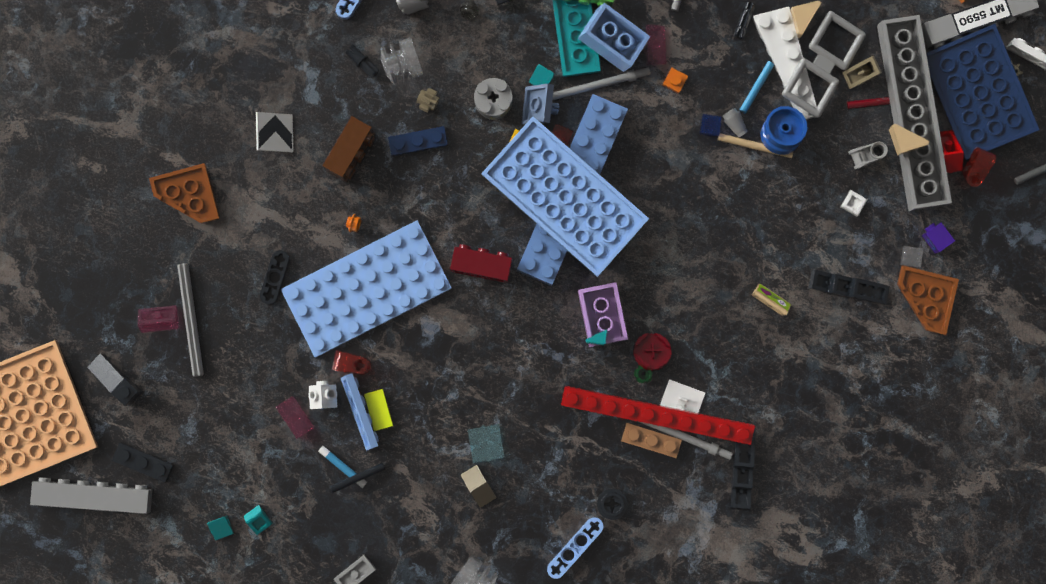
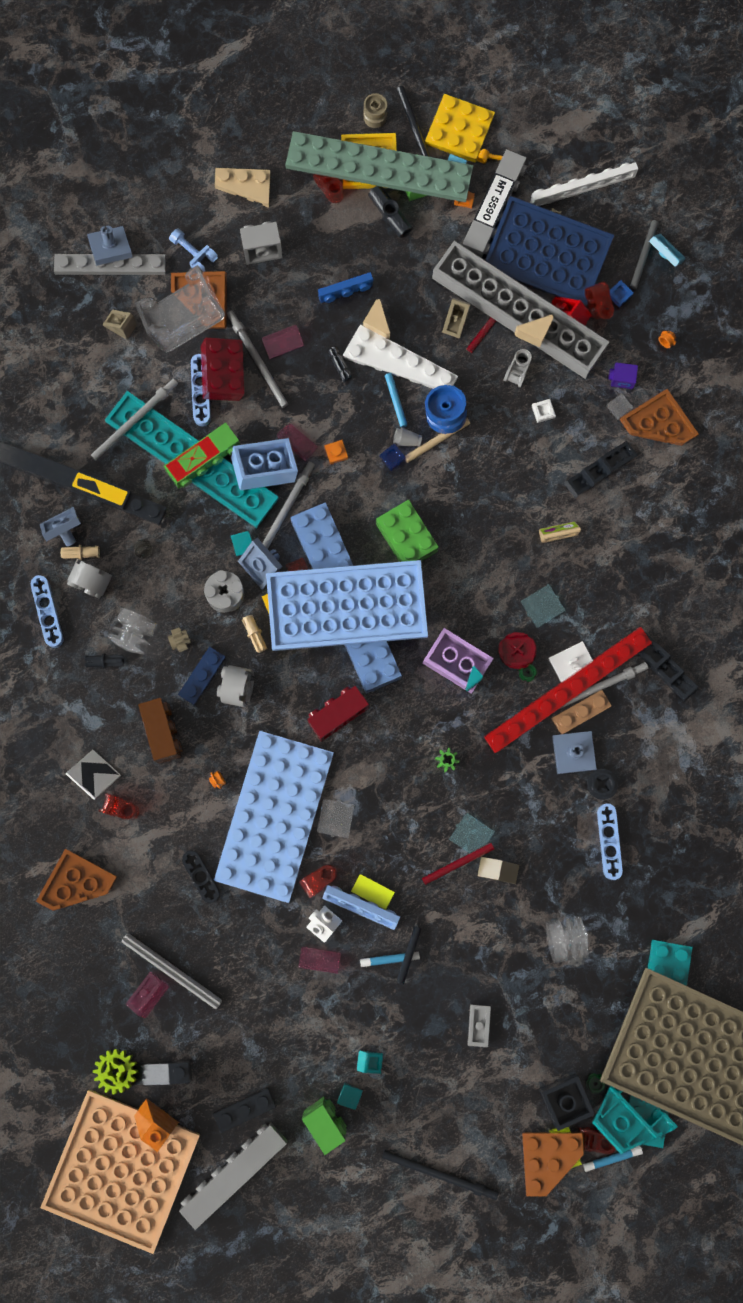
camera: 50 degrees left, 5 degrees down
(72, 408) = (154, 1125): none -> orange slope
(89, 339) = (112, 1064): none -> lime gear
(183, 528) = (324, 1125): none -> bright green brick
(266, 170) = (116, 806): none -> clear red piece
(406, 334) = (335, 818): none -> clear piece
(432, 172) = (235, 686): none -> light grey brick
(455, 452) = (458, 863): none -> dark red bar
(483, 149) = (254, 633): none -> tan axle
(520, 370) = (446, 765): none -> bright green gear
(616, 462) = (574, 752): none -> sand blue tile
(661, 190) = (406, 533): none -> bright green brick
(704, 339) = (542, 606): none -> clear light blue piece
(823, 64) = (424, 338): light grey bar -> none
(999, 244) = (667, 339): none -> orange plate
(1000, 176) = (620, 293): none -> blue plate

